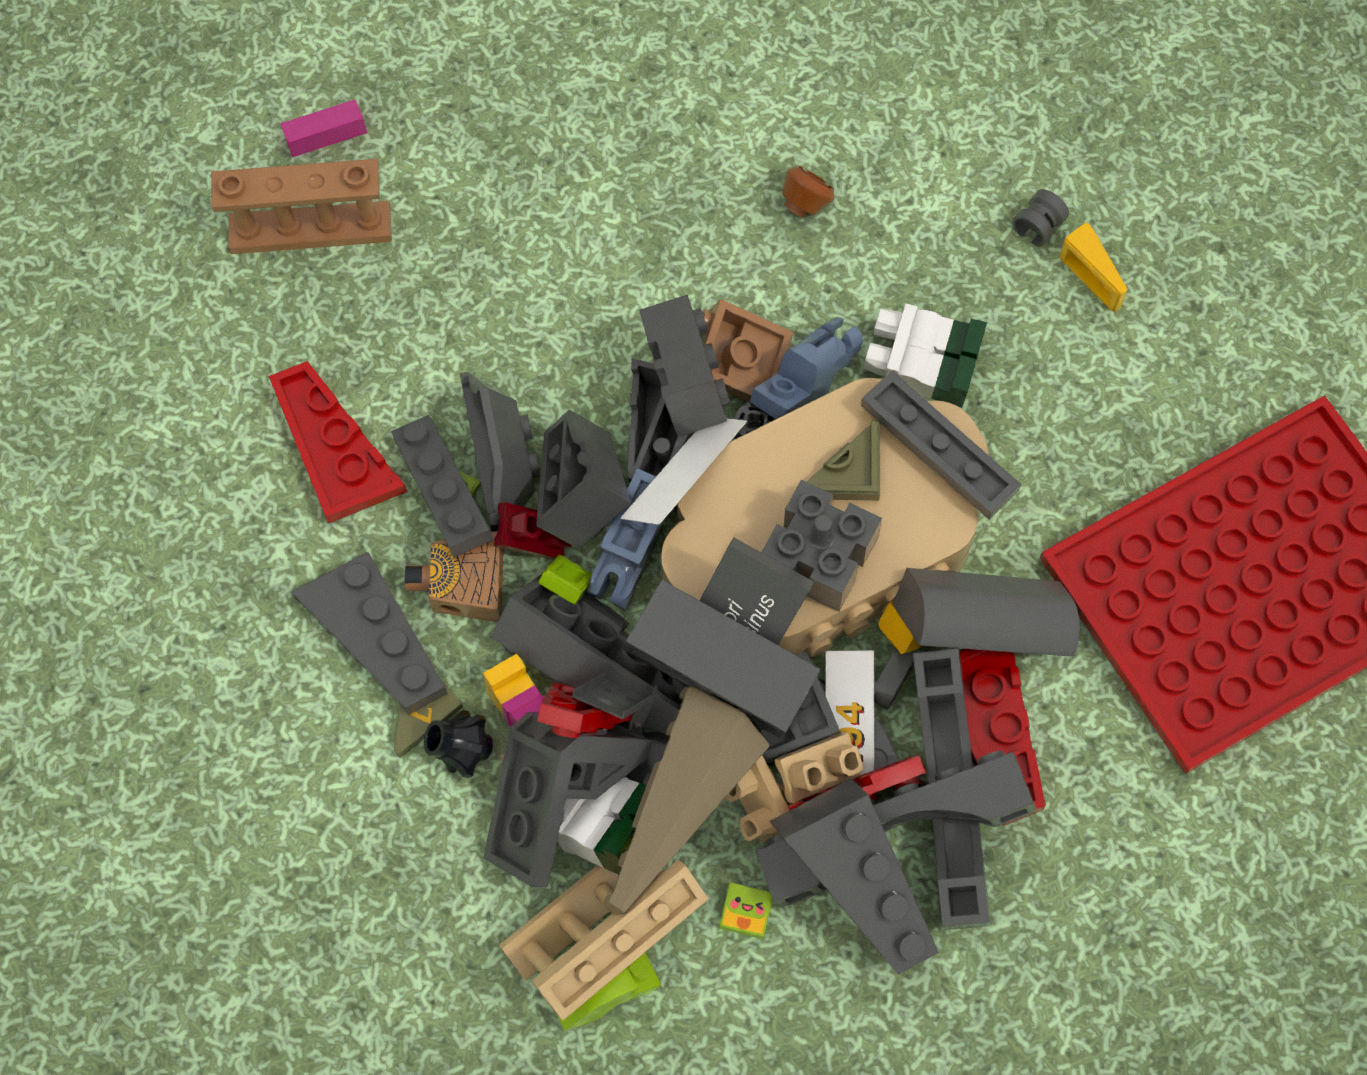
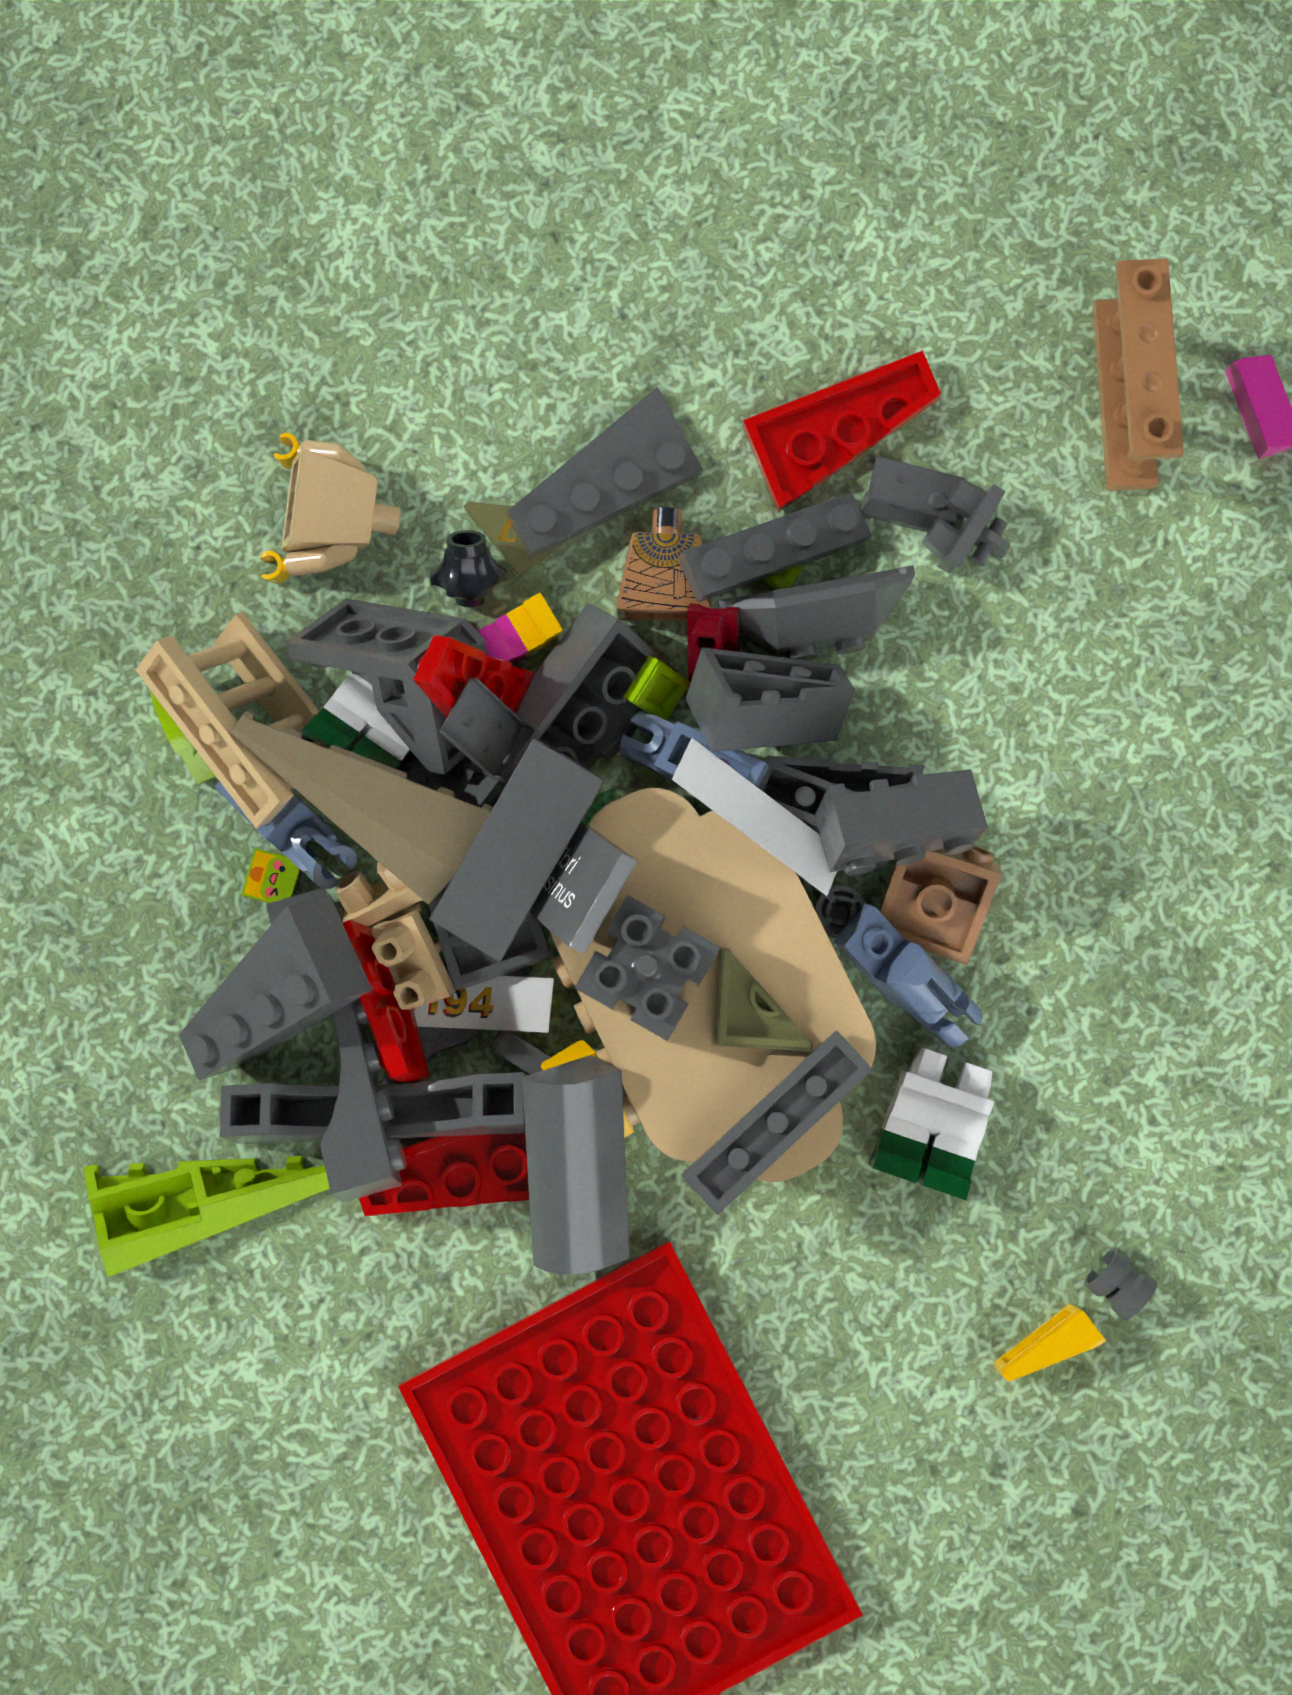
camera: 95 degrees right, 15 degrees up
(395, 384) = (908, 495): none -> dark grey piece
(399, 871) = (327, 509): none -> tan torso
(427, 333) = (977, 507): none -> dark grey hips
(713, 880) = (291, 832): none -> sand blue plate
(806, 191) = (1162, 991): dark orange cone -> none
(1060, 995) = (158, 1213): none -> lime wedge

